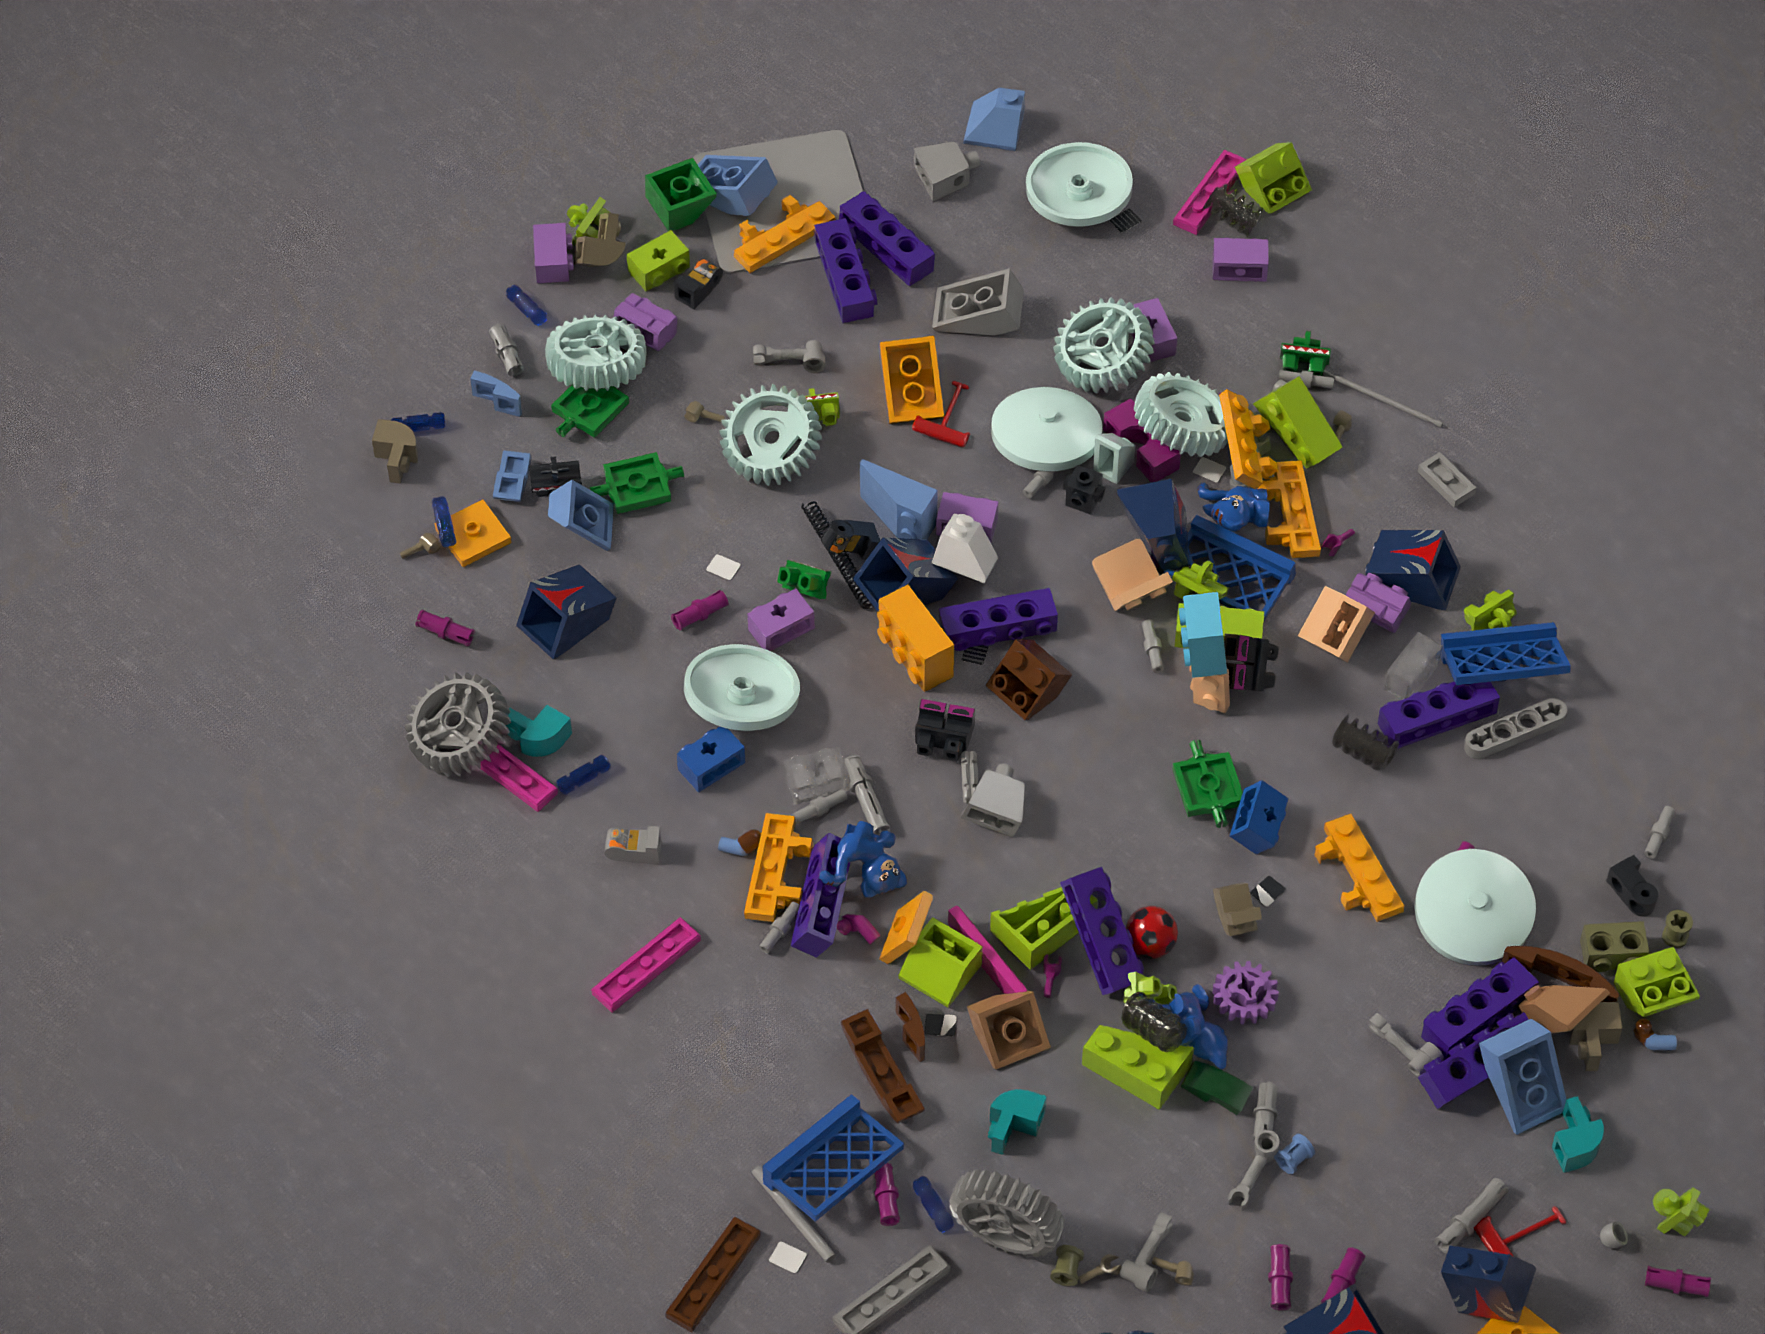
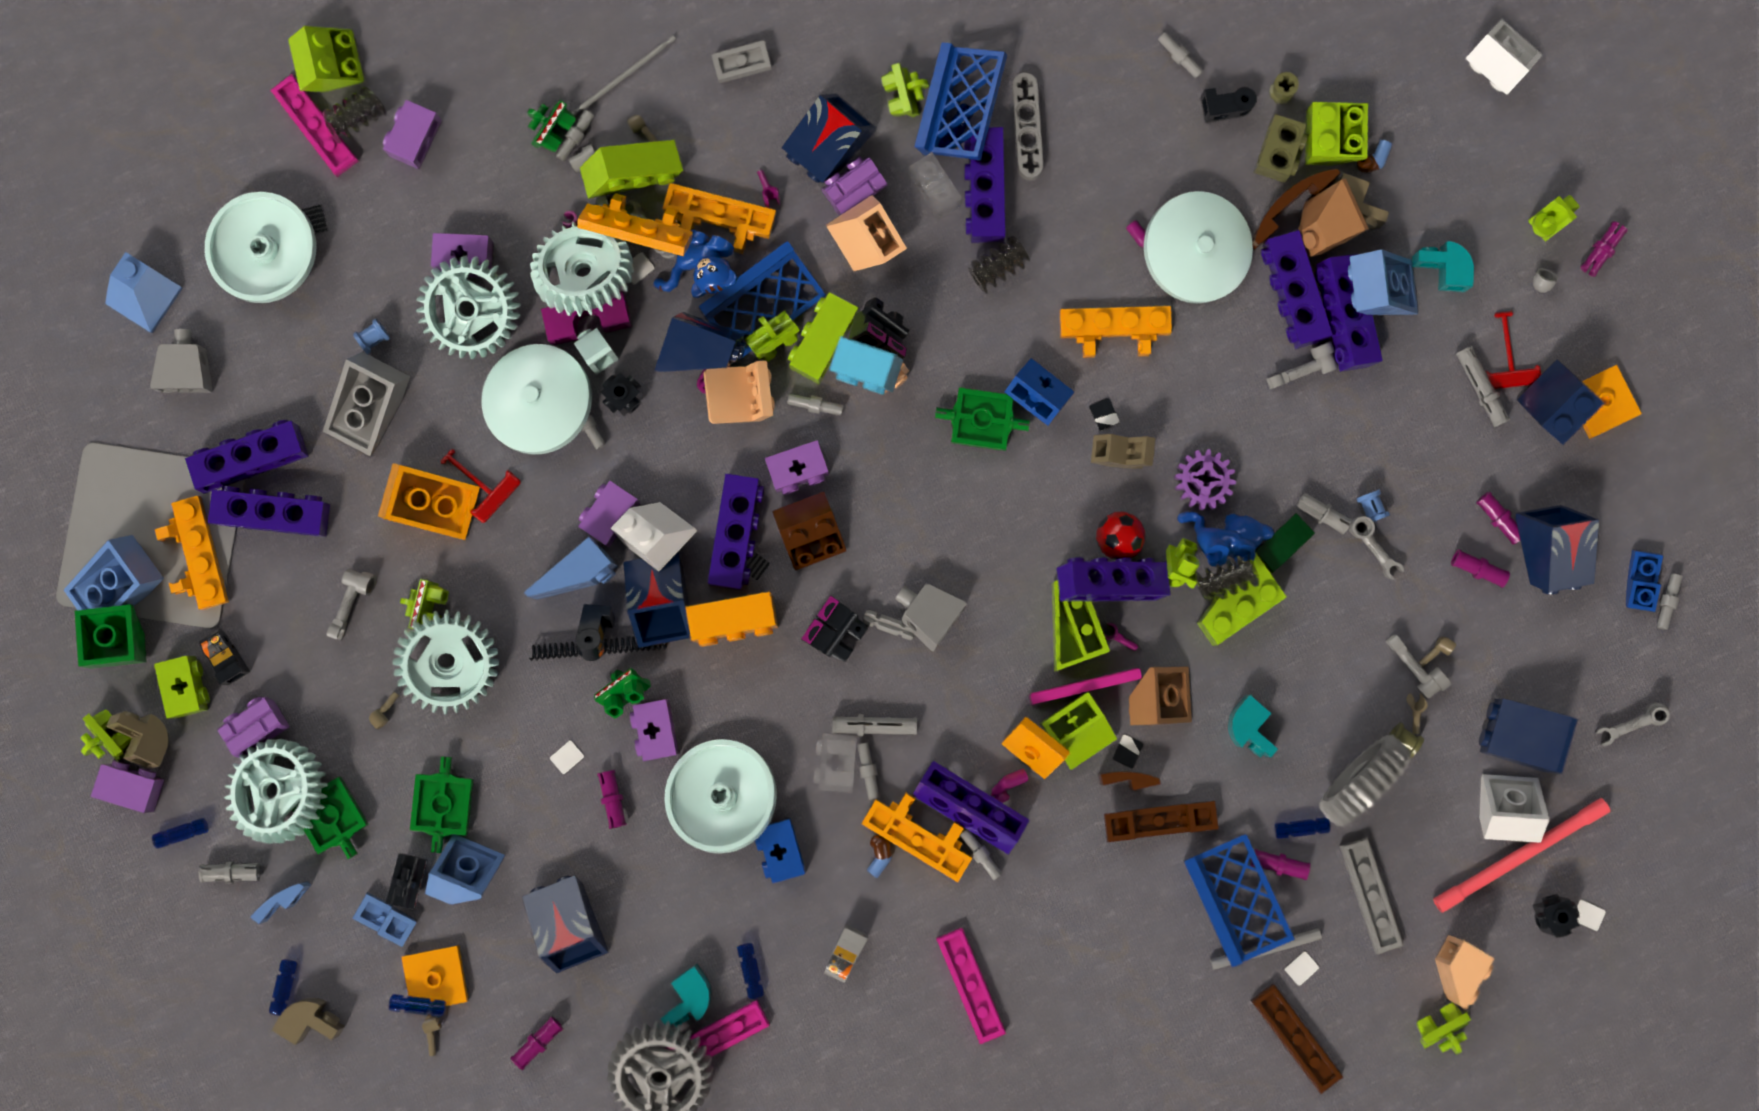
camera: 65 degrees left, 30 degrees up
(879, 870) = (946, 753): blue animal -> none
(1041, 291) = (371, 336): none -> medium blue bush
(1085, 648) = (806, 455): none -> medium lavender brick

